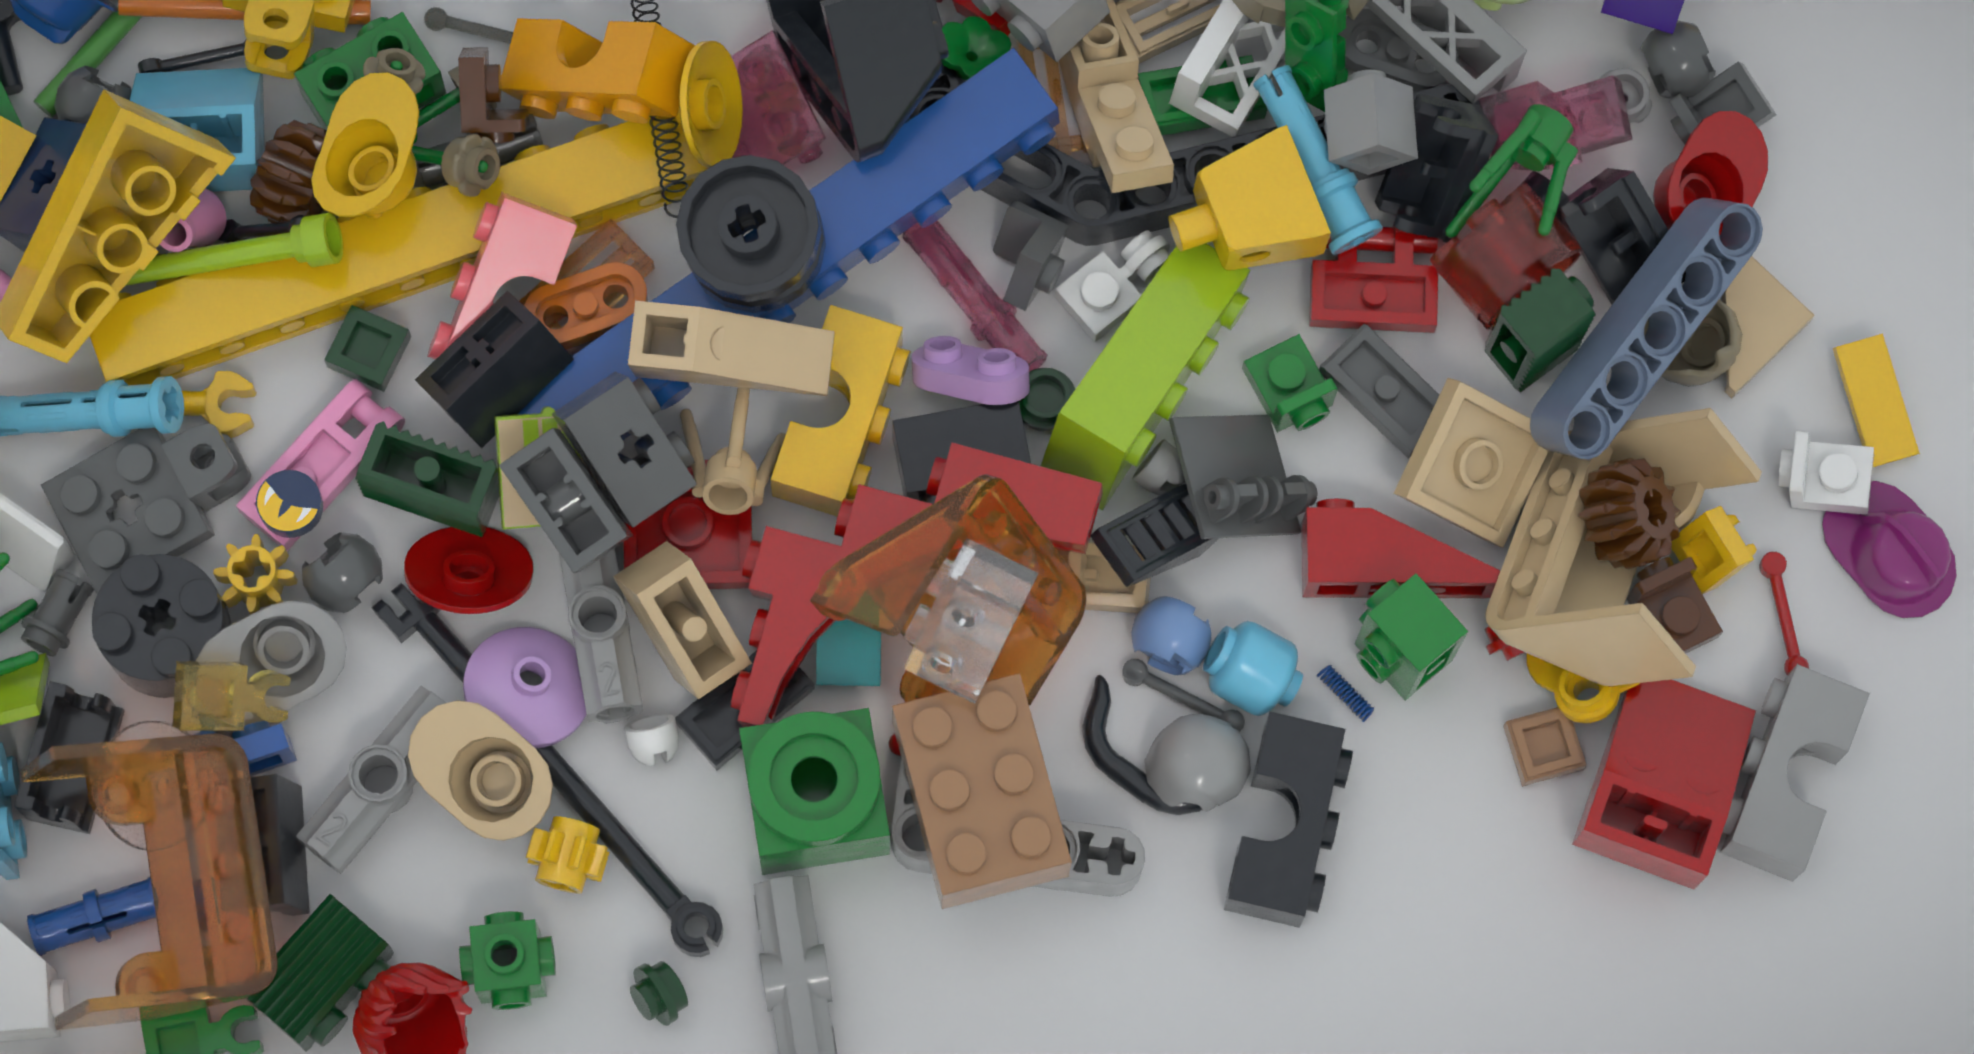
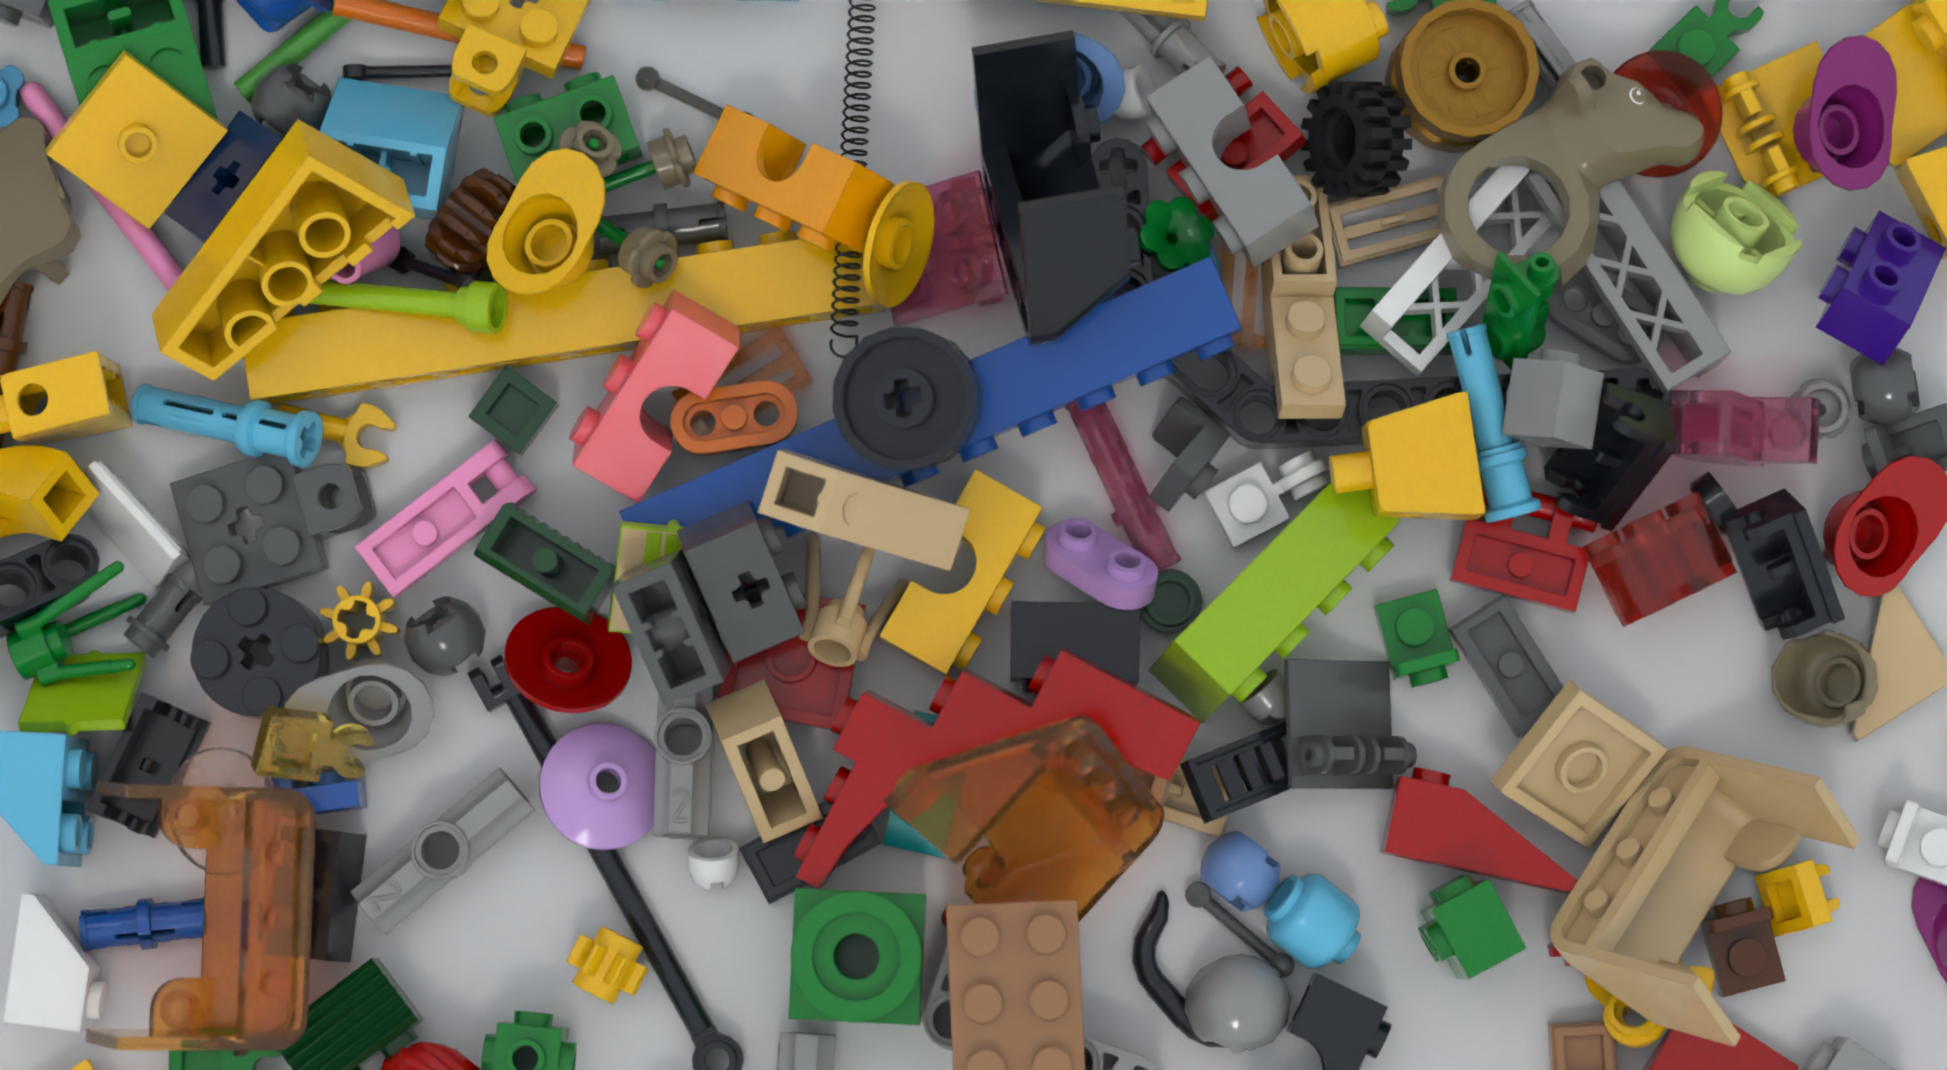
camera: 20 degrees right, 10 degrees up
(289, 503) = (406, 559): tile -> none
(478, 89) = (672, 186): reddish brown bracket -> none
(480, 770) = (539, 869): tan piece -> none
(494, 368) = (629, 472): black hinge -> none
(969, 619) = (1035, 848): clear brick -> none
(1359, 701) = (1399, 960): blue leg -> none
(1536, 142) = (1713, 461): green plant -> none
(1540, 328) = (1677, 641): dark green brick -> none
(1619, 337) = (1780, 669): sand blue beam -> none
(1629, 513) = (1718, 853): reddish brown gear -> none
(1772, 567) = (1852, 922): red hinge -> none

